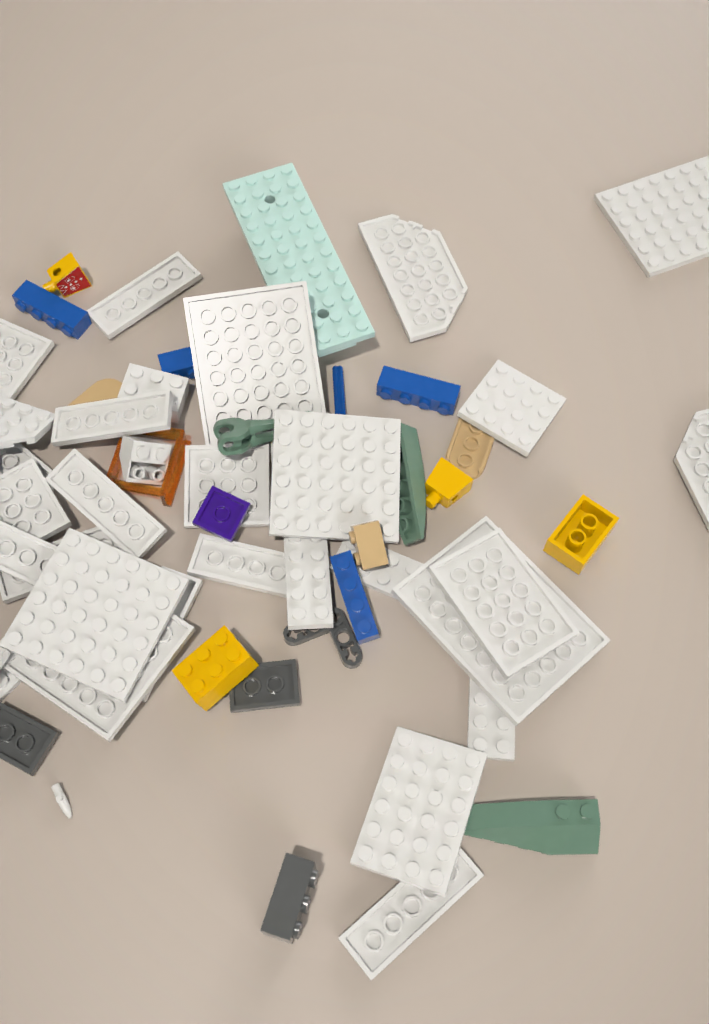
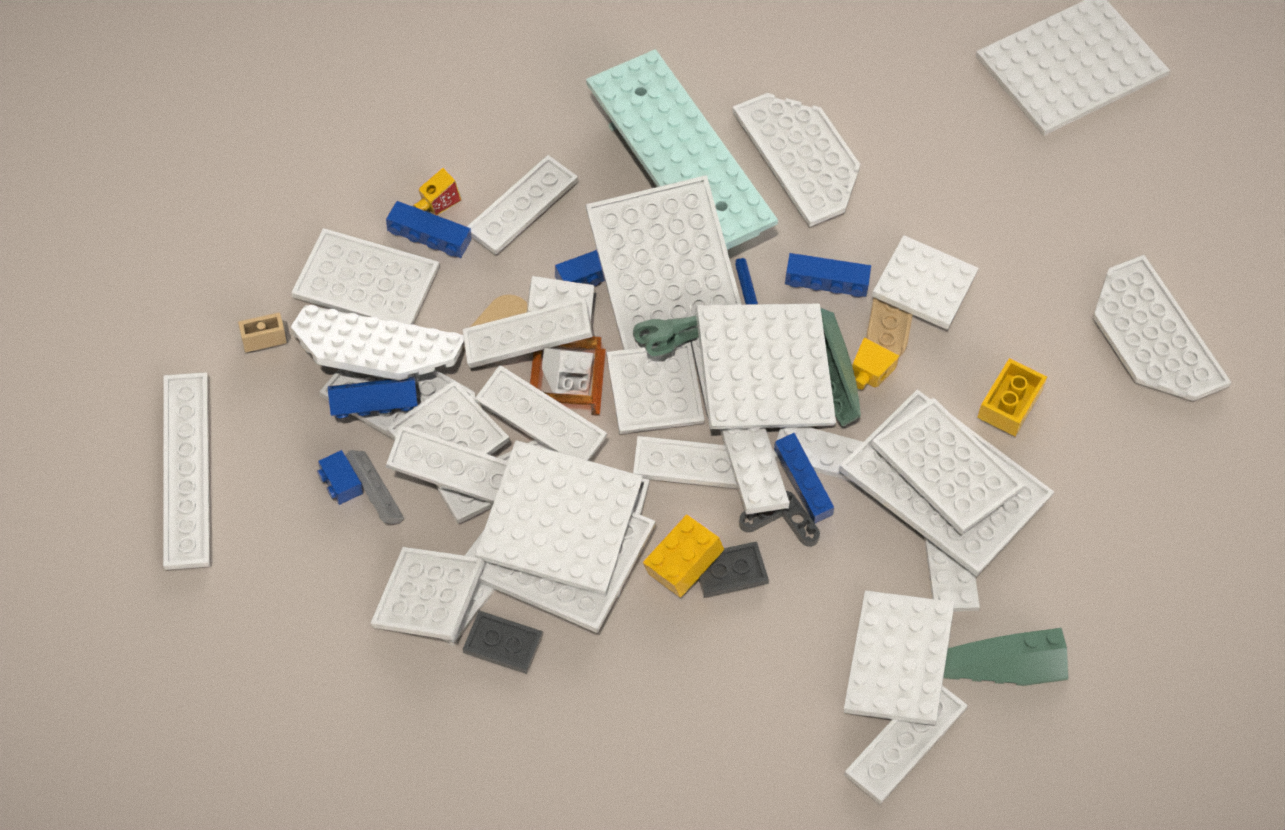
camera: 10 degrees left, 5 degrees down
(61, 799) = (560, 690): white helmet -> none
(221, 514) = (657, 414): dark purple plate -> none
(290, 899) = (797, 742): dark grey brick -> none
(368, 545) = (810, 426): tan brick -> none

